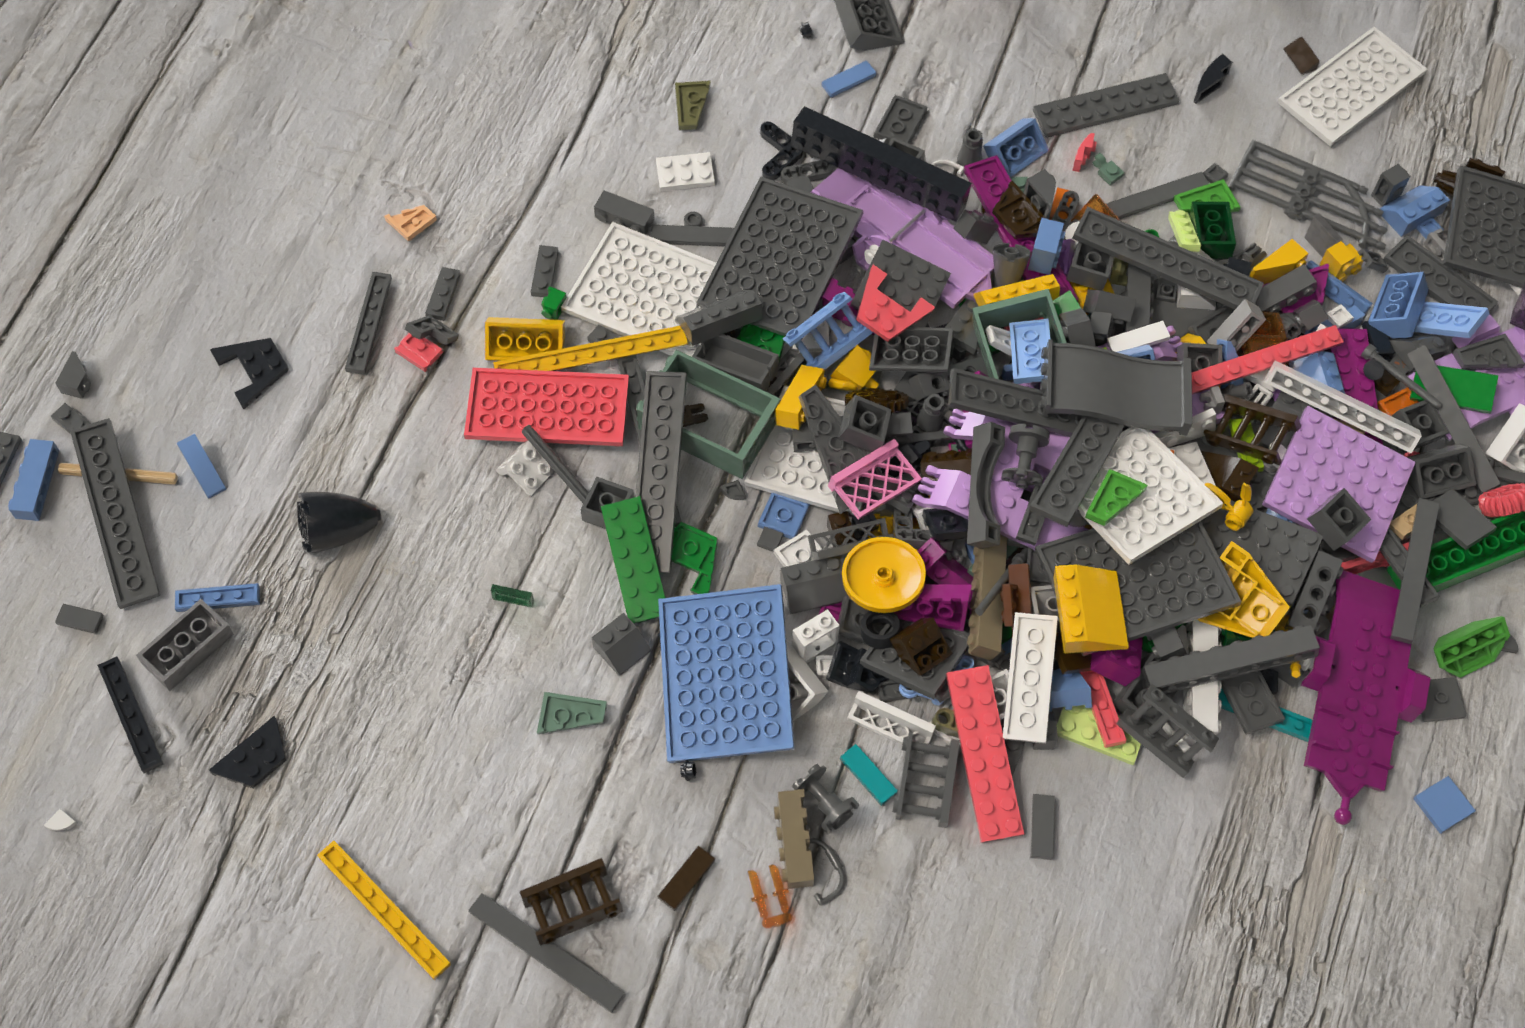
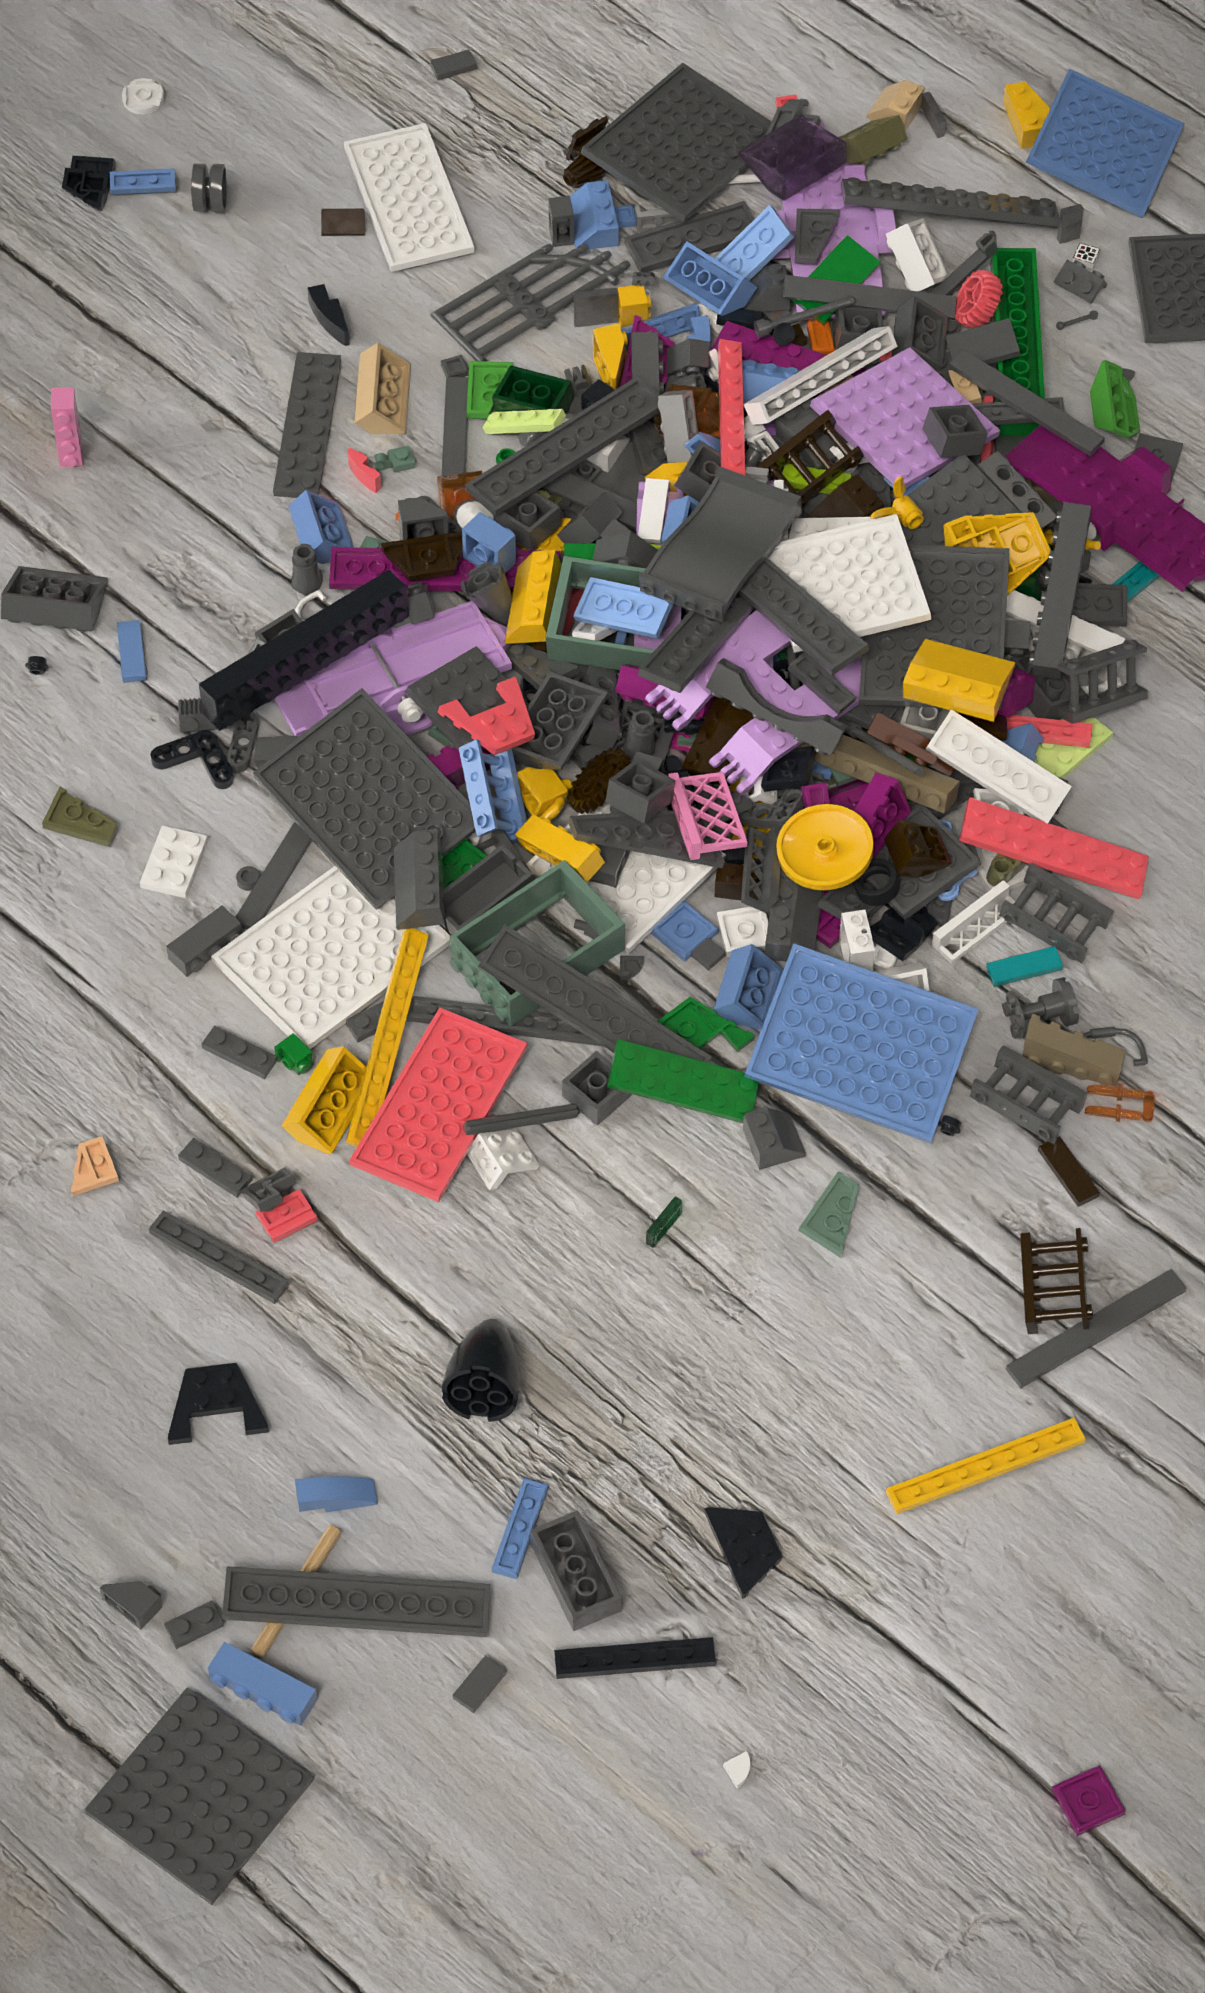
camera: 65 degrees left, 5 degrees down
(747, 571) = (748, 987): none -> medium blue slope
(755, 833) = (1036, 1077): none -> dark grey fence
(900, 120) = (220, 625): dark grey tile -> none
(1027, 442) = (757, 651): dark grey piece -> none
(1042, 826) = (1146, 838): dark grey tile -> none
(1114, 496) = (849, 597): bright green wing -> none
(1162, 137) = (382, 391): none -> tan slope
(1339, 316) = (701, 332): white tile -> none
(1497, 67) = (453, 64): none -> dark grey tile

